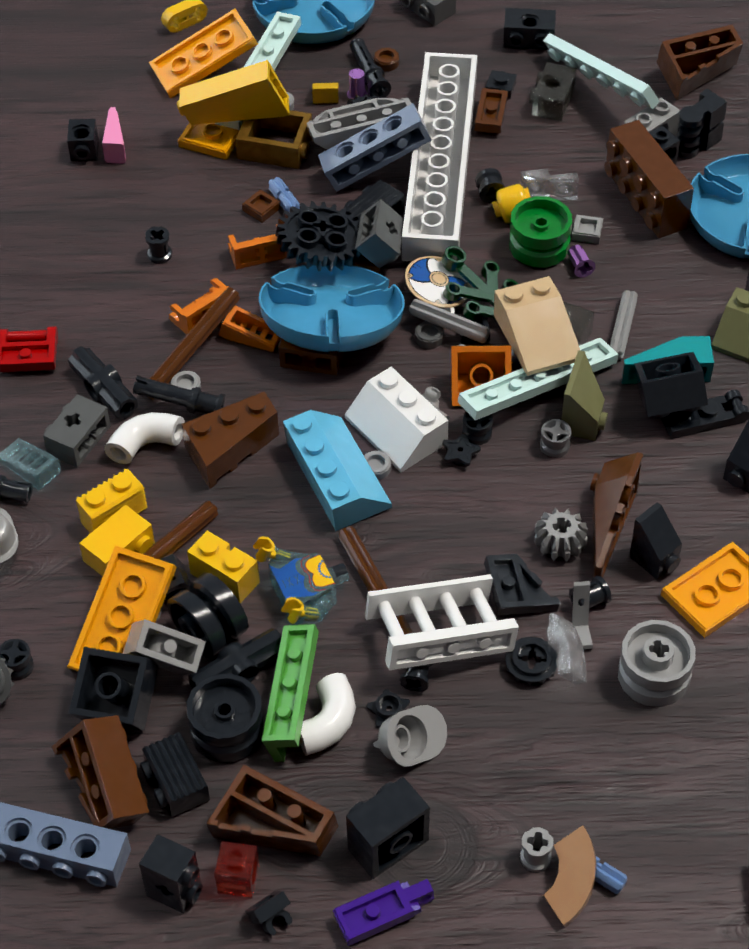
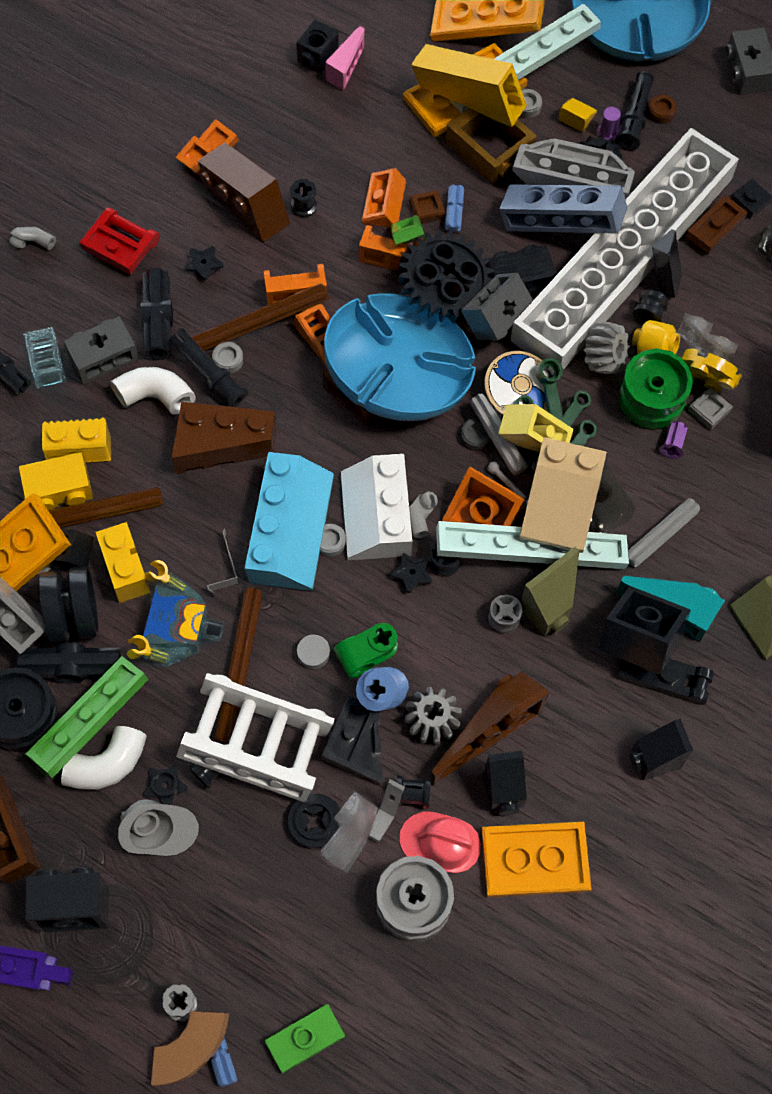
camera: 30 degrees right, 15 degrees up
(48, 250) = (209, 140): none -> orange slope
(107, 260) = (245, 190): none -> reddish brown wedge
(111, 336) = (207, 269): none -> black plate
(221, 216) = (384, 198): none -> orange slope
(263, 222) = (407, 230): none -> bright green plate
(312, 523) = (225, 583): none -> light grey piece
(429, 547) = (313, 651): none -> light grey tile
(472, 517) = (363, 652): none -> green piece
(473, 295) = (529, 423): none -> light yellow slope
(480, 146) = (667, 264): none -> black slope
(482, 223) = (606, 348): none -> light grey gear
(513, 520) = (388, 677): none -> medium blue piece
(577, 195) = (713, 370): none -> yellow plate
(626, 614) = (442, 839): none -> coral piece
(654, 816) = (305, 1038): none -> bright green plate

